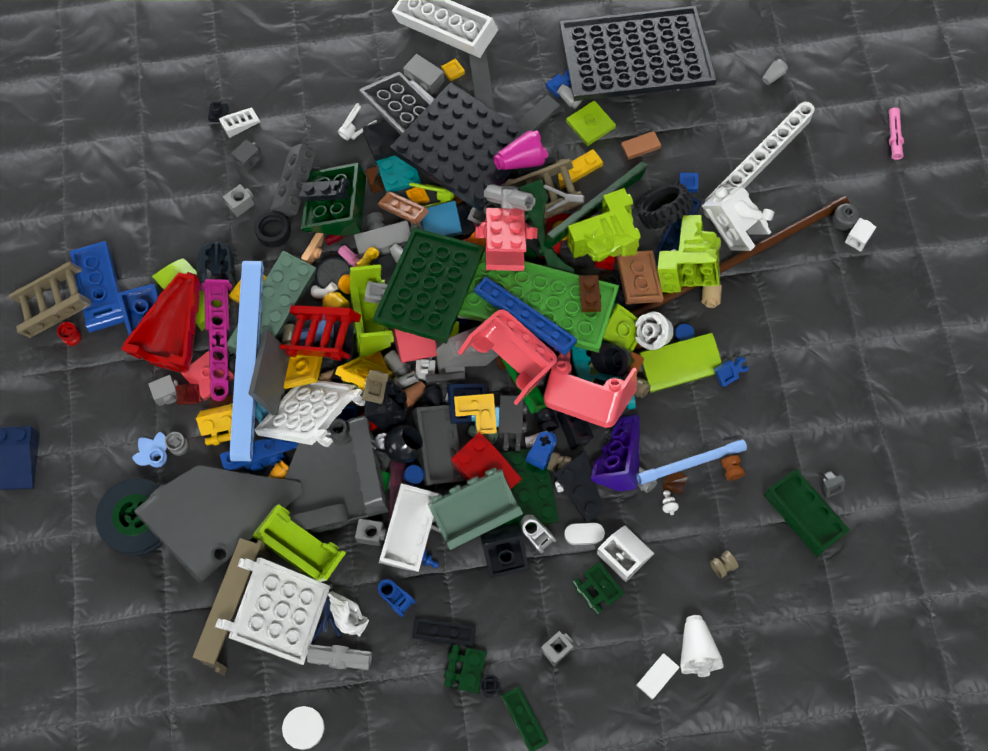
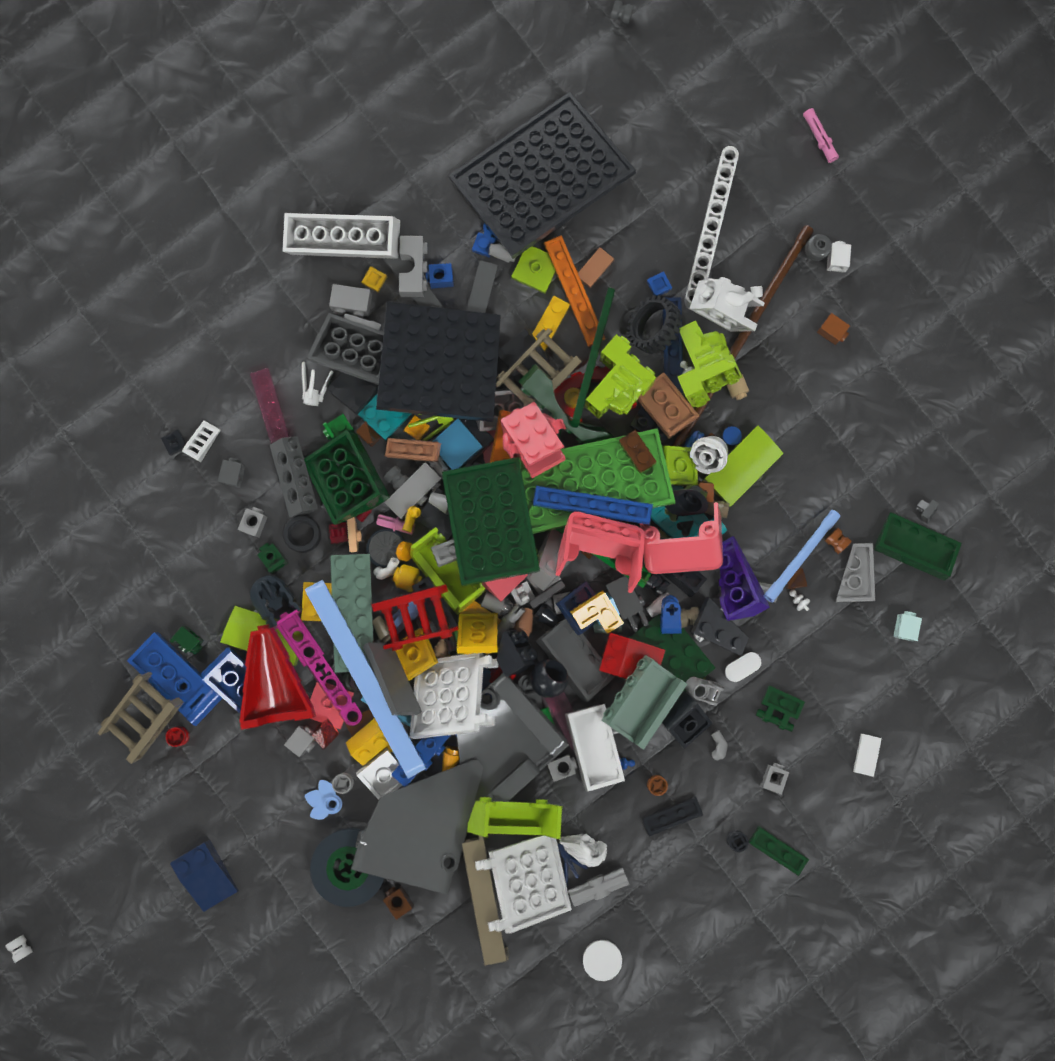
camera: 30 degrees left, 15 degrees up
(127, 263) = (187, 640): none -> dark green brick
(163, 576) = (398, 911): none -> reddish brown brick
(208, 449) = (378, 772): none -> white plate
(237, 235) = (278, 560): none -> dark green brick
(301, 243) = (338, 533): none -> dark red tile
(310, 118) = (269, 405): none -> clear pink plate
(324, 190) = (333, 475): black plate -> none
(345, 160) = (337, 427): none -> green bracket
(375, 386) = (503, 649): dark tan bracket -> none
(398, 599) = (617, 811): blue piece -> none
(413, 475) = (570, 698): blue tile -> none
(446, 590) = (659, 787): none -> dark orange wheel
(471, 672) = (713, 835): dark green plate -> none
(481, 79) = (413, 283): none -> light grey arch
(509, 197) = (517, 399): light grey piece -> none
(512, 94) = (446, 281): none -> blue brick
(522, 153) = (500, 344): dark pink cone -> none
(524, 593) = (721, 747): none -> light grey arm
(568, 198) = (568, 368): light grey plant -> none
(613, 144) = (573, 288): none -> orange tile
(624, 553) = (787, 666): white slope -> none
(699, 649) = (890, 714): white cone -> none
(724, 564) = (873, 630): dark tan wheel -> none
(728, 371) = (789, 452): blue plate -> none
(735, 511) = (858, 577): none -> light grey wing
(758, 577) = (907, 626): none -> light aqua brick
(775, 71) = (679, 126): light grey cone -> none
(824, 289) = (834, 329): none -> dark orange brick

